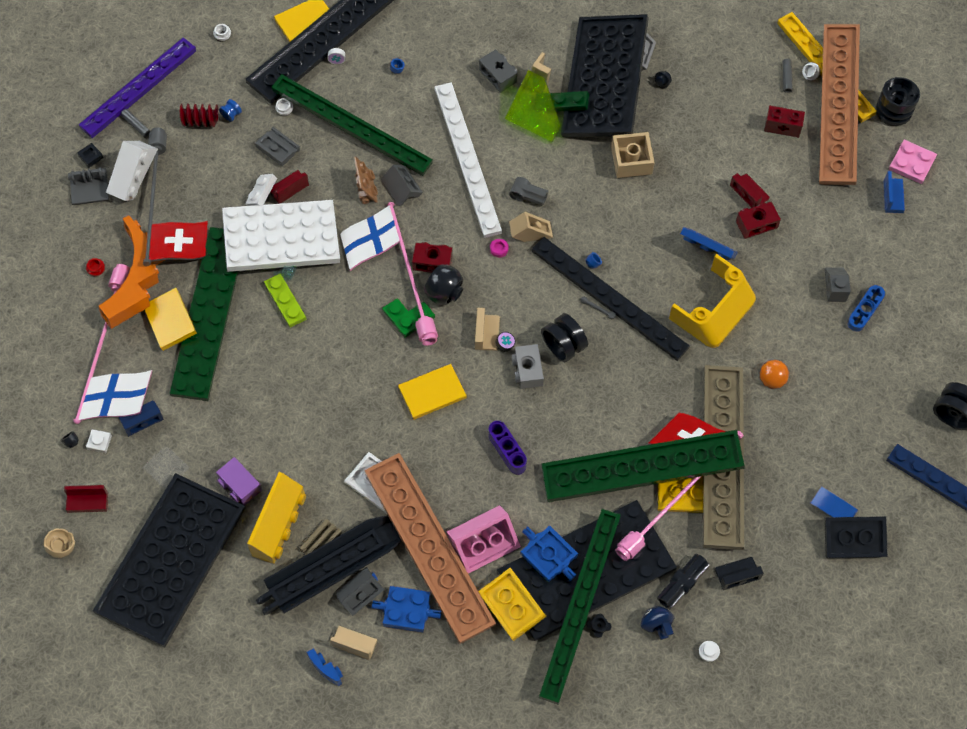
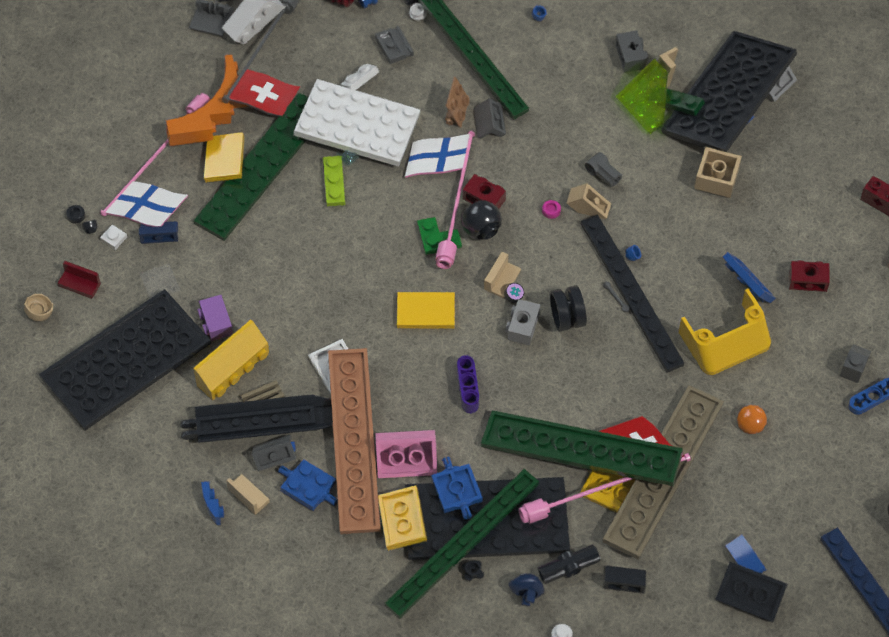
camera: 25 degrees right, 5 degrees down
(49, 433) = (75, 214): none -> black tile
(95, 267) = (182, 89): red plate -> none
(289, 186) = (387, 83): dark red panel -> none
(468, 160) = (562, 121): white plate -> none
(663, 79) = (785, 116): black plate -> none
(748, 190) = (816, 245): dark red panel -> none

